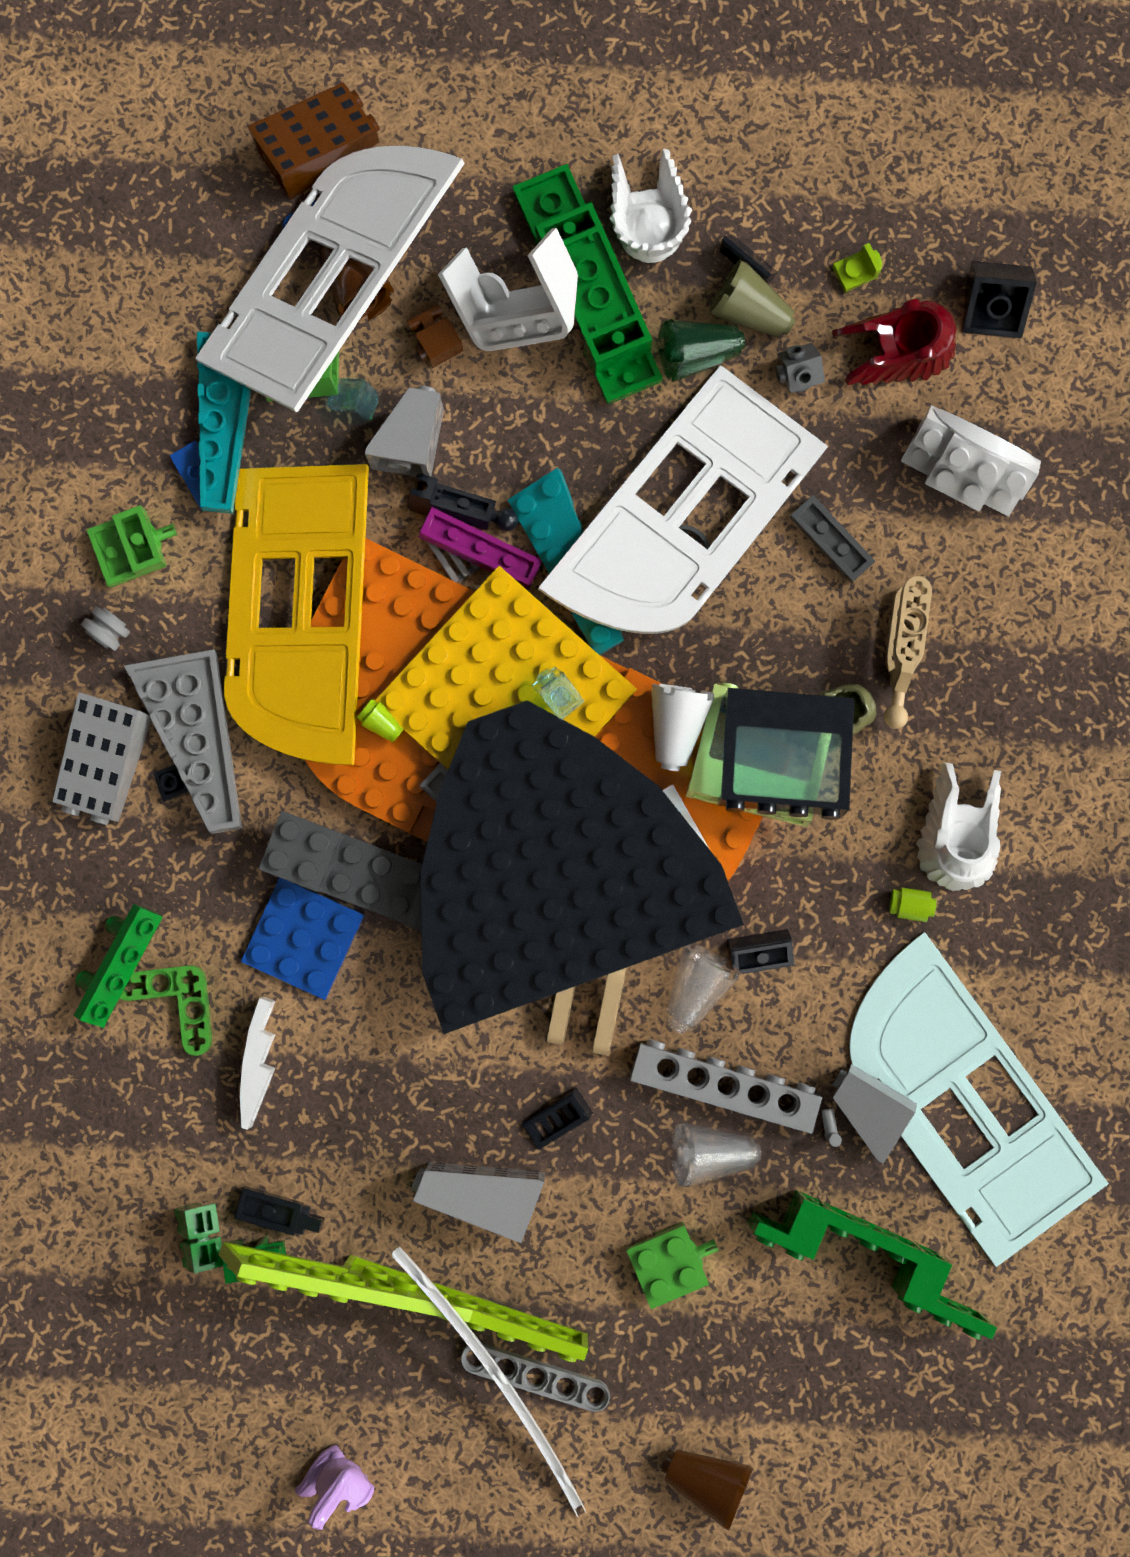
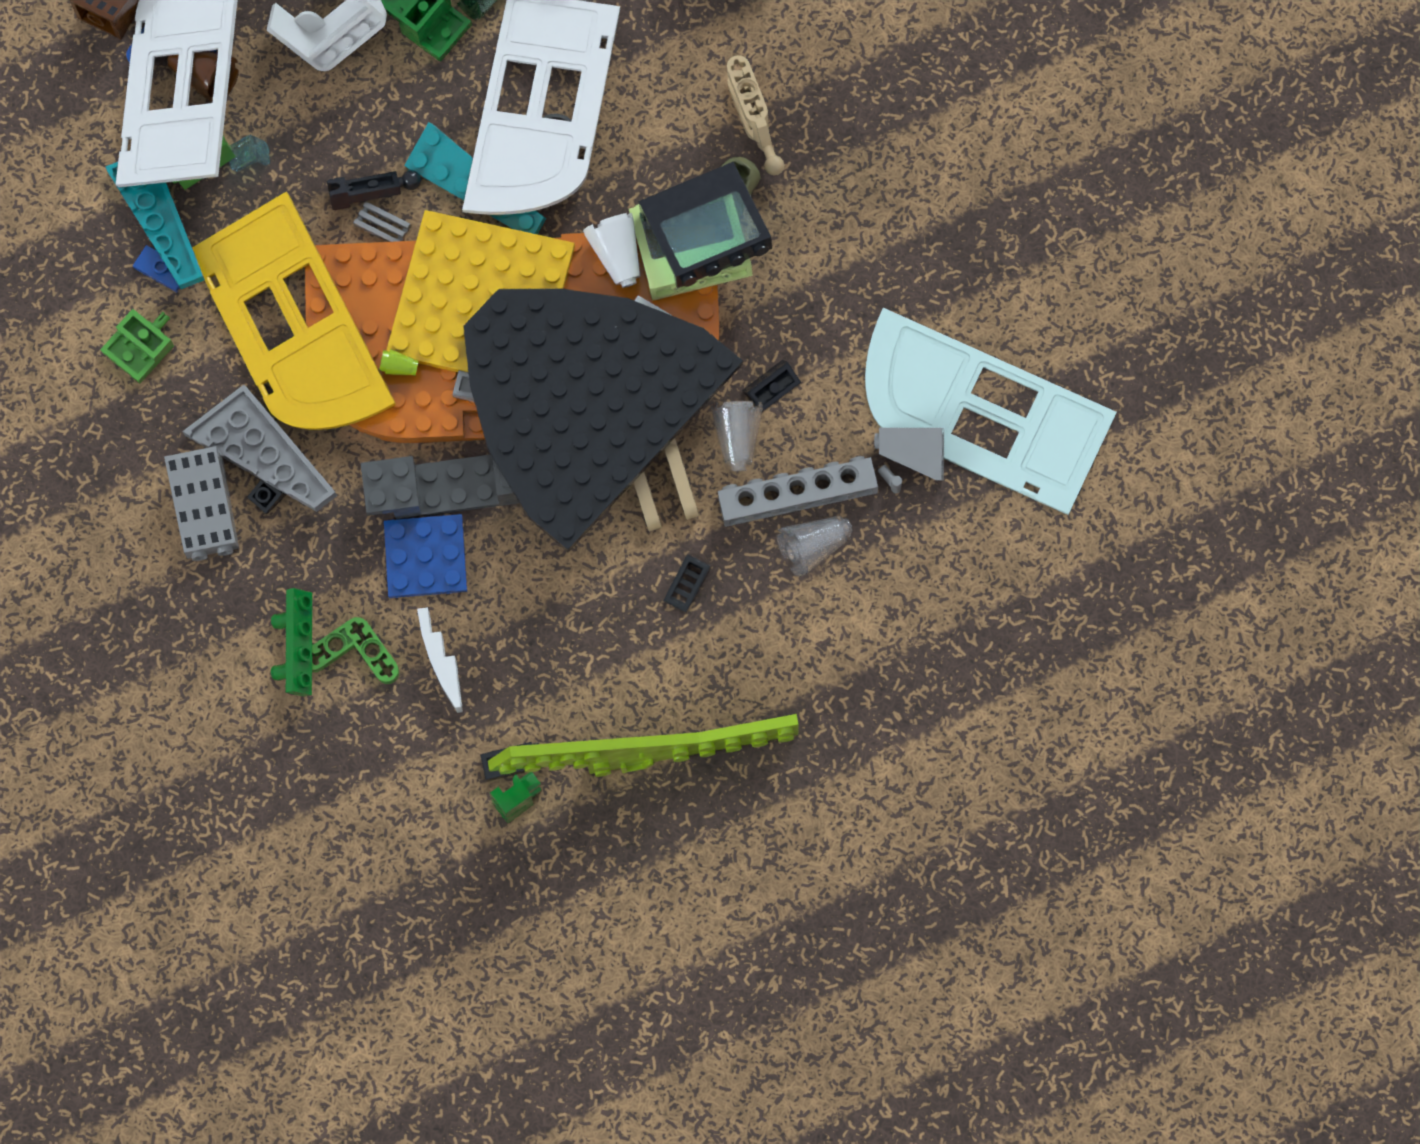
camera: 25 degrees left, 10 degrees down
(105, 628) = (153, 411): light grey wheel -> none
(195, 1225) = (460, 797): green legs -> none
(334, 1480) = (665, 923): lavender hair -> none
(409, 435) = (306, 156): light grey slope -> none
(437, 340) = (287, 81): reddish brown brick -> none
(478, 547) = (399, 208): magenta plate -> none
(481, 1195) = (659, 659): light grey slope -> none
(493, 1369) = (744, 772): white piece -> none
(548, 1385) = (785, 765): light grey beam -> none
(557, 692) = (517, 271): clear light blue bracket -> none
(670, 1264) = (828, 638): bright green plate -> none
(708, 1483) = (943, 774): reddish brown cone -> none
(832, 539) = (659, 68): dark grey plate -> none
(912, 904) = (862, 292): lime brick -> none
(917, 1279) = (1012, 544): green bracket -> none
(959, 840) = (870, 226): white piece -> none

